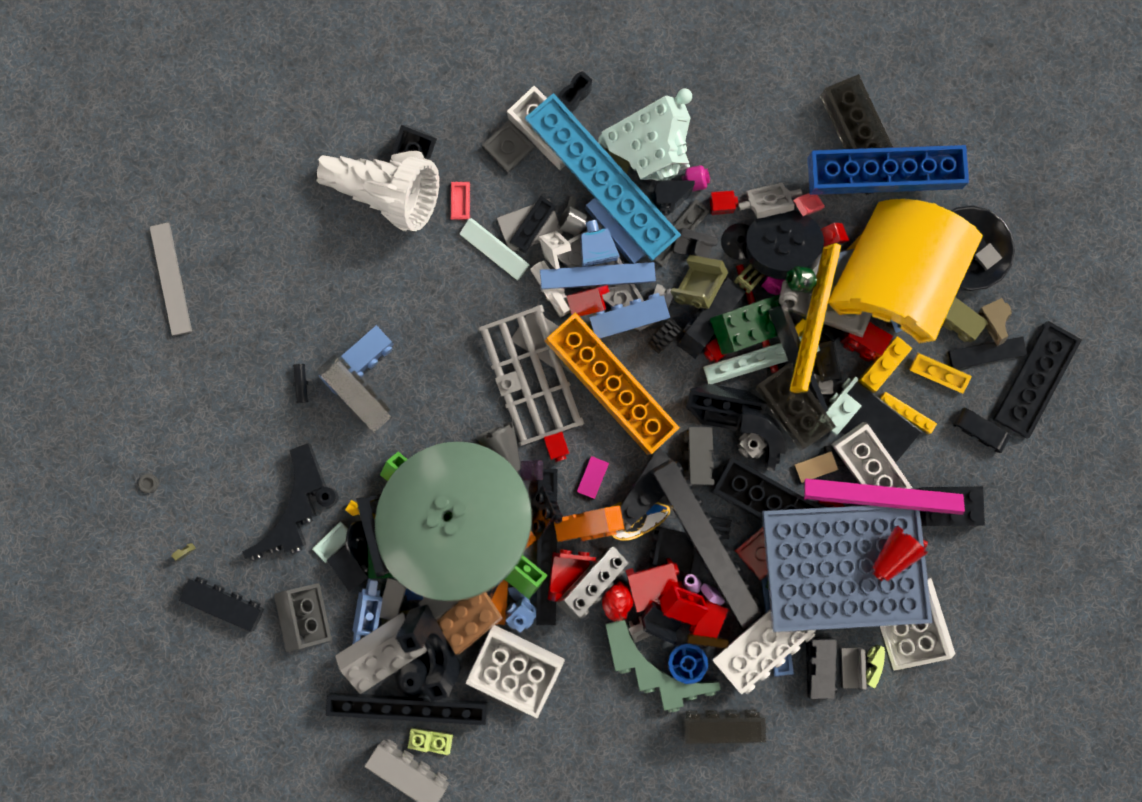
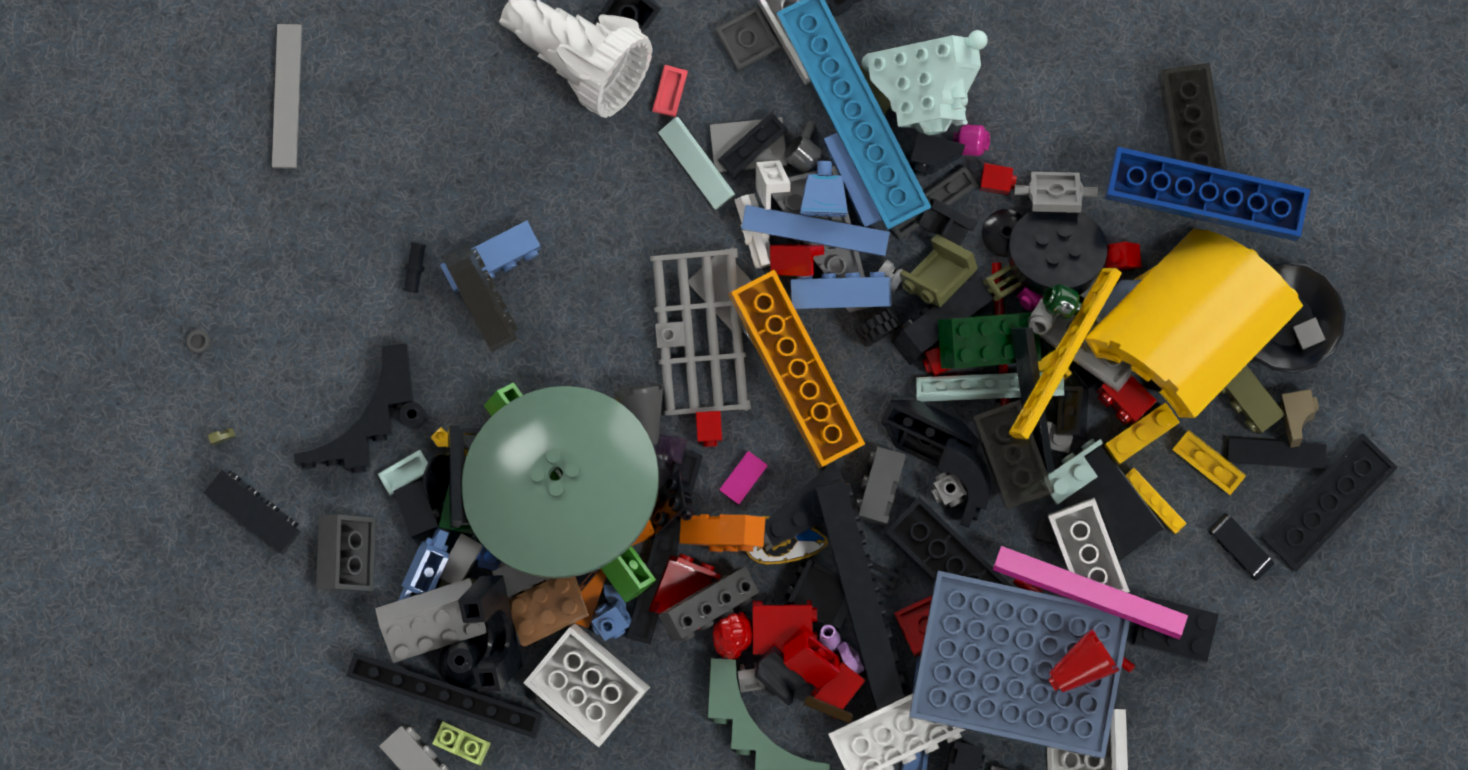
camera: 15 degrees right, 0 degrees up
(688, 663) = (798, 731): blue cylinder -> none
(808, 204) = (1102, 210): coral tile -> none
(816, 466) = (1023, 537): tan tile -> none

